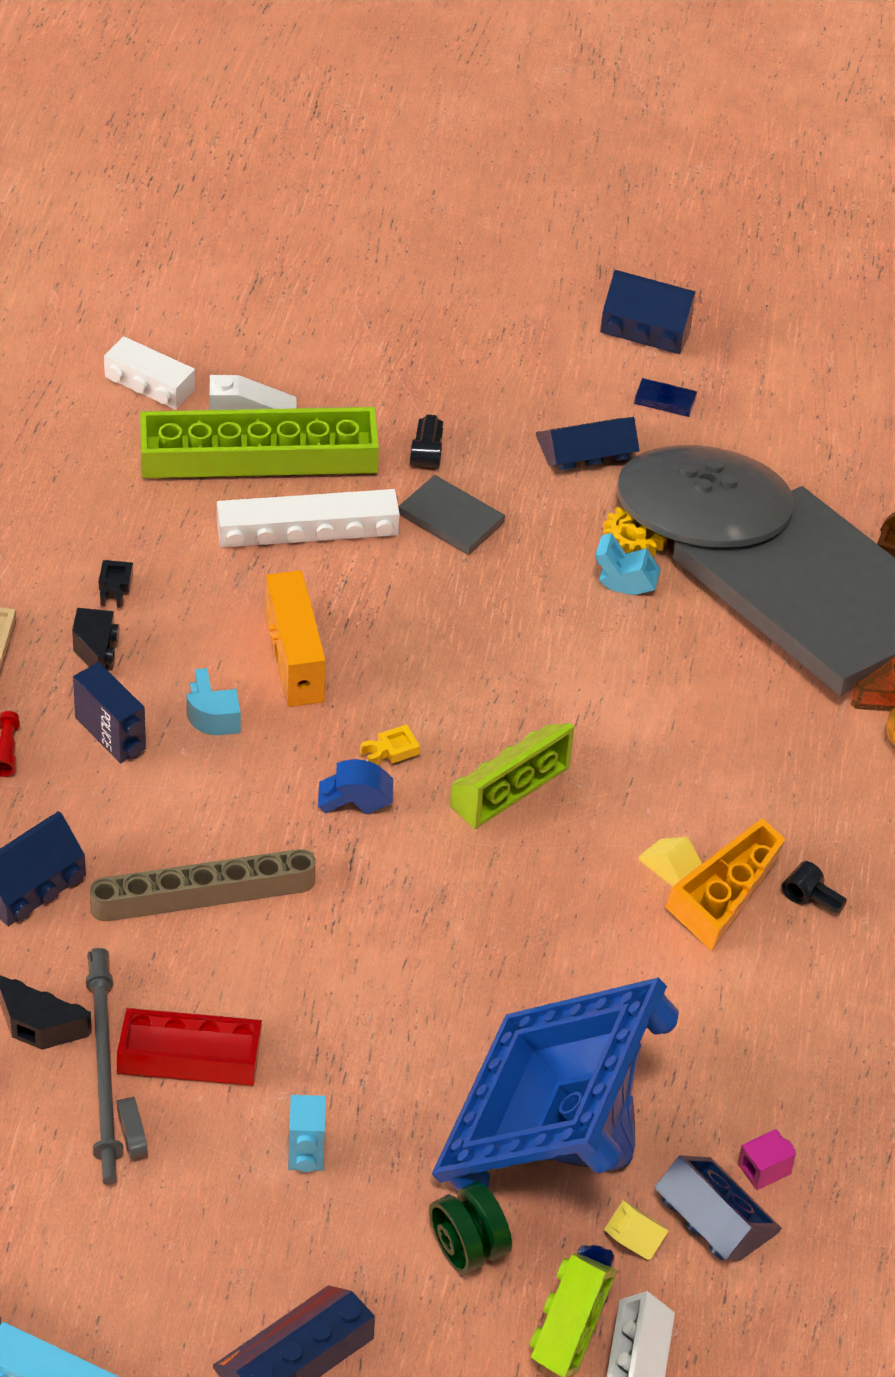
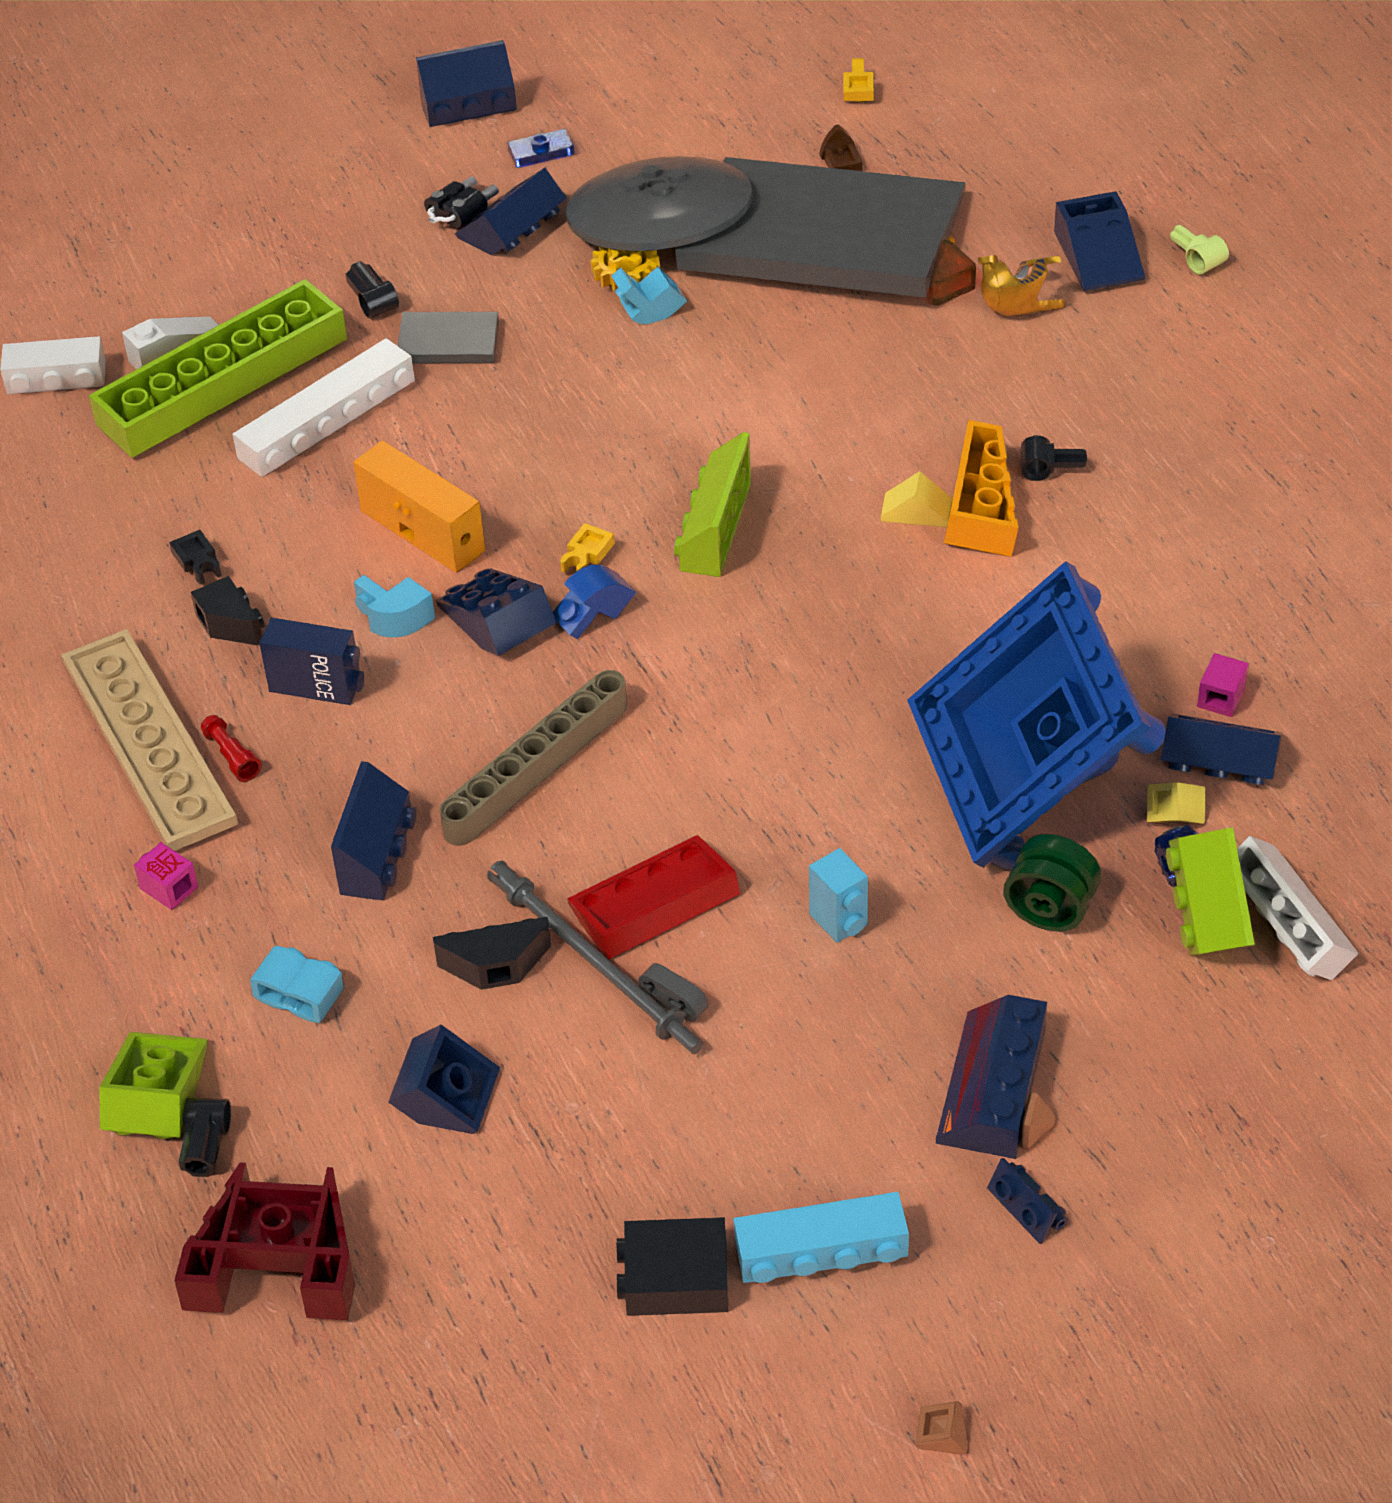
camera: 30 degrees left, 0 degrees up
(283, 754) = (498, 609): none -> dark blue slope
(557, 407) = (458, 202): none -> black piece

